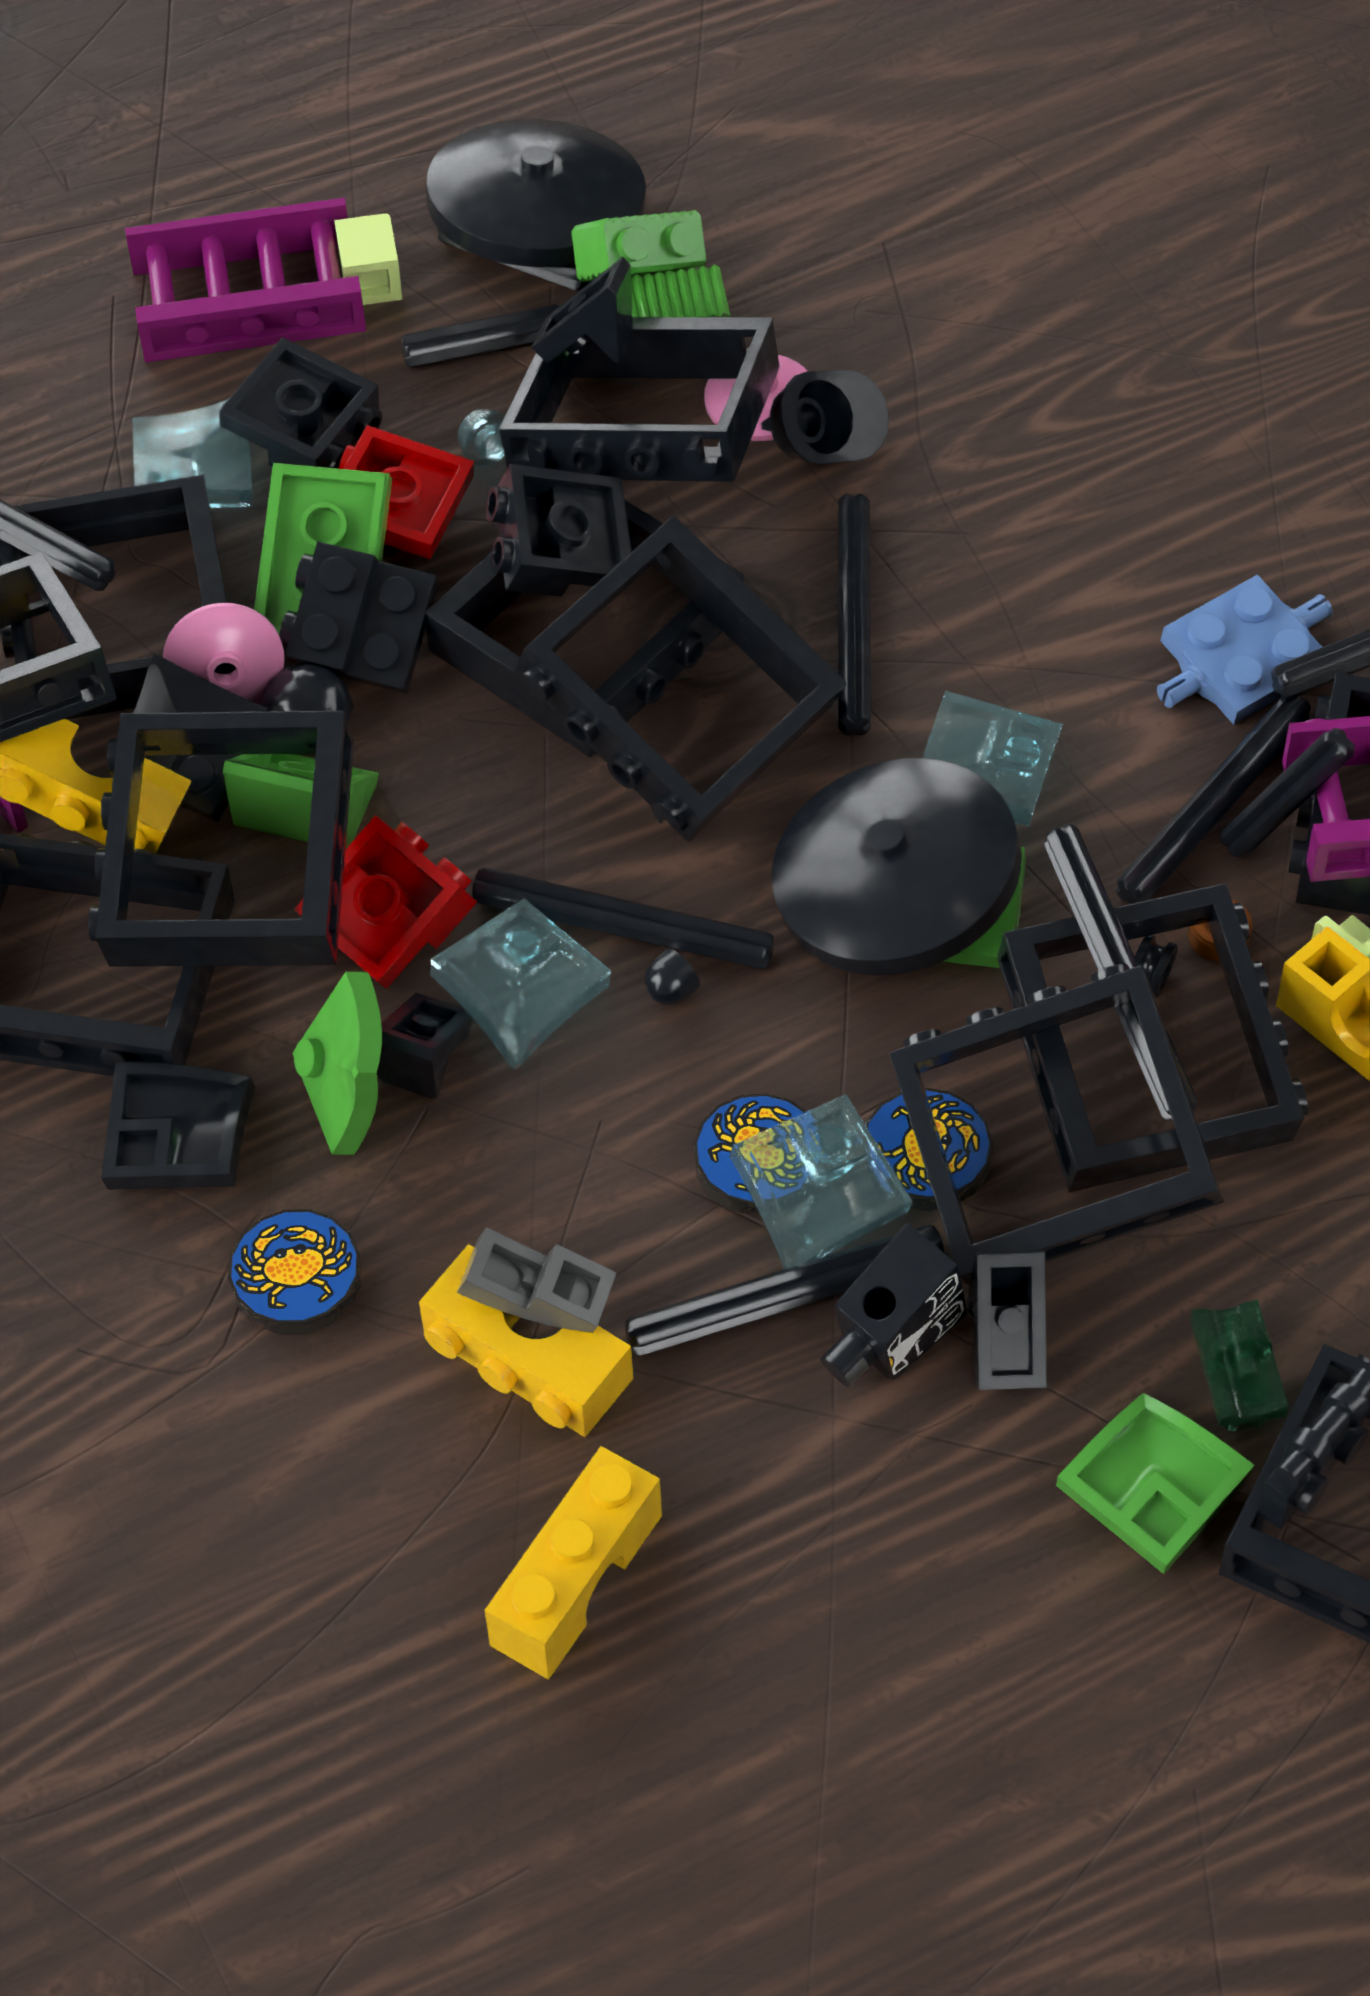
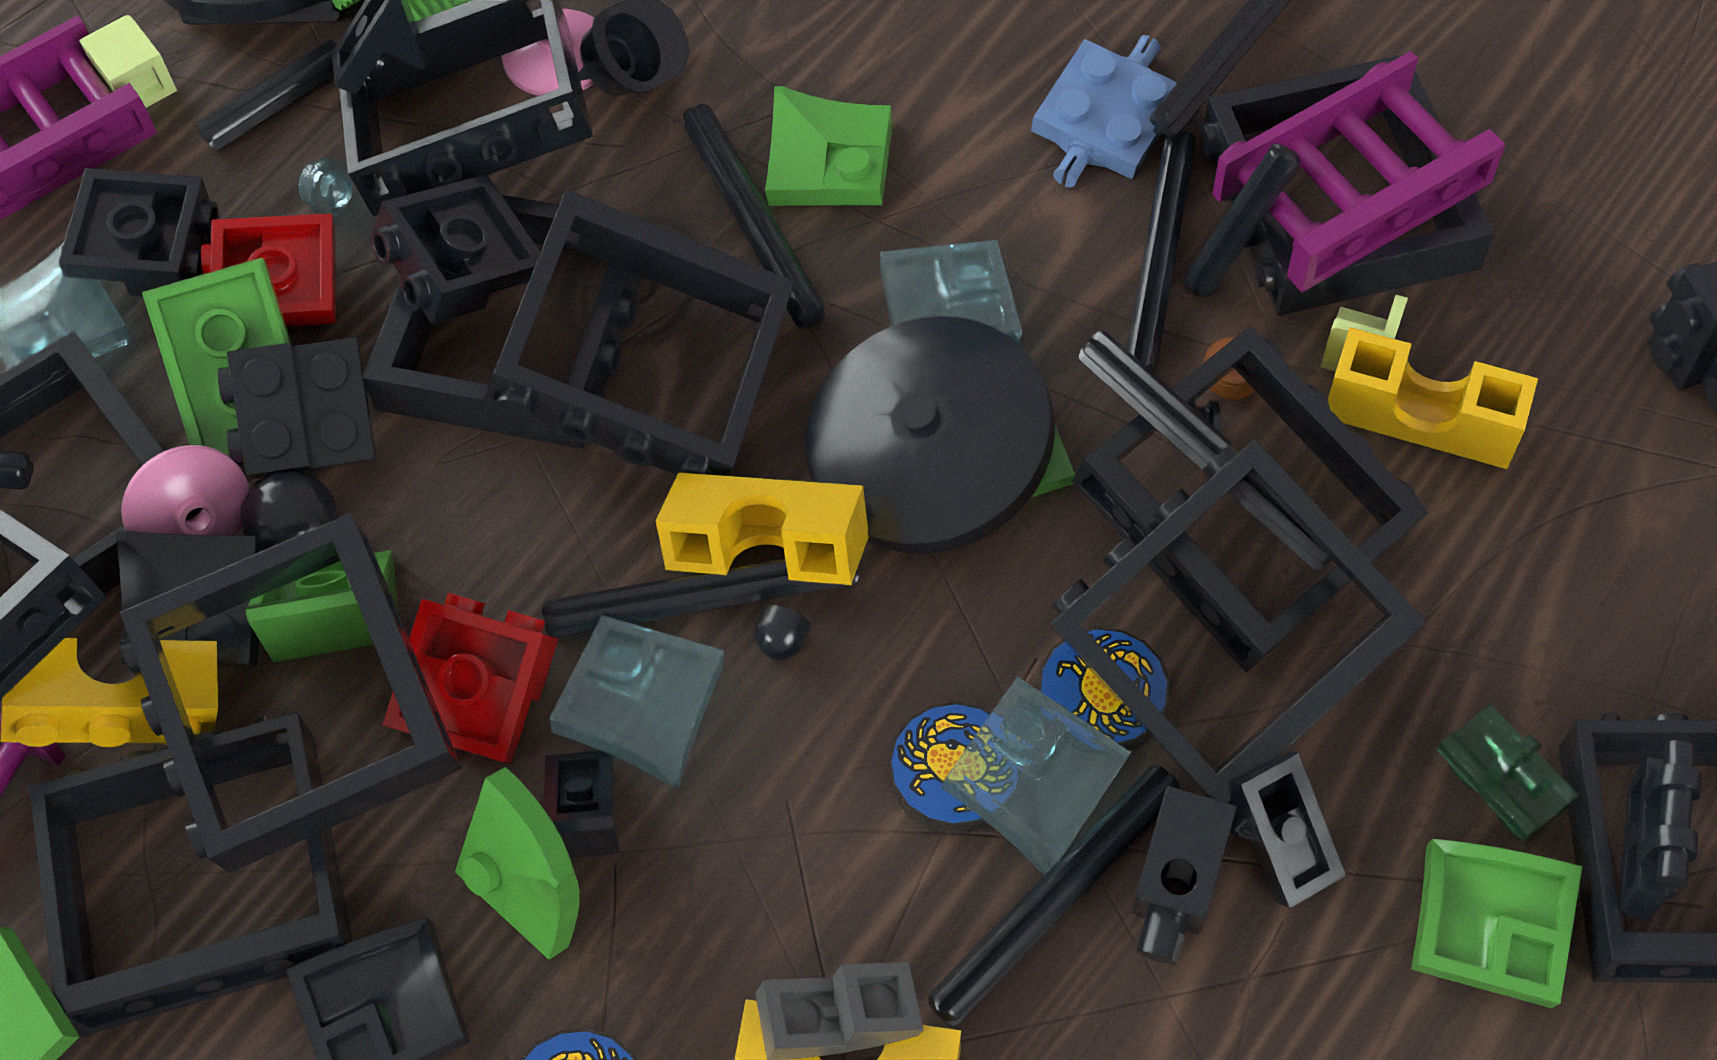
camera: 25 degrees left, 5 degrees up
(664, 858) = (718, 517): none -> yellow arch
(956, 583) = (827, 151): none -> bright green plate

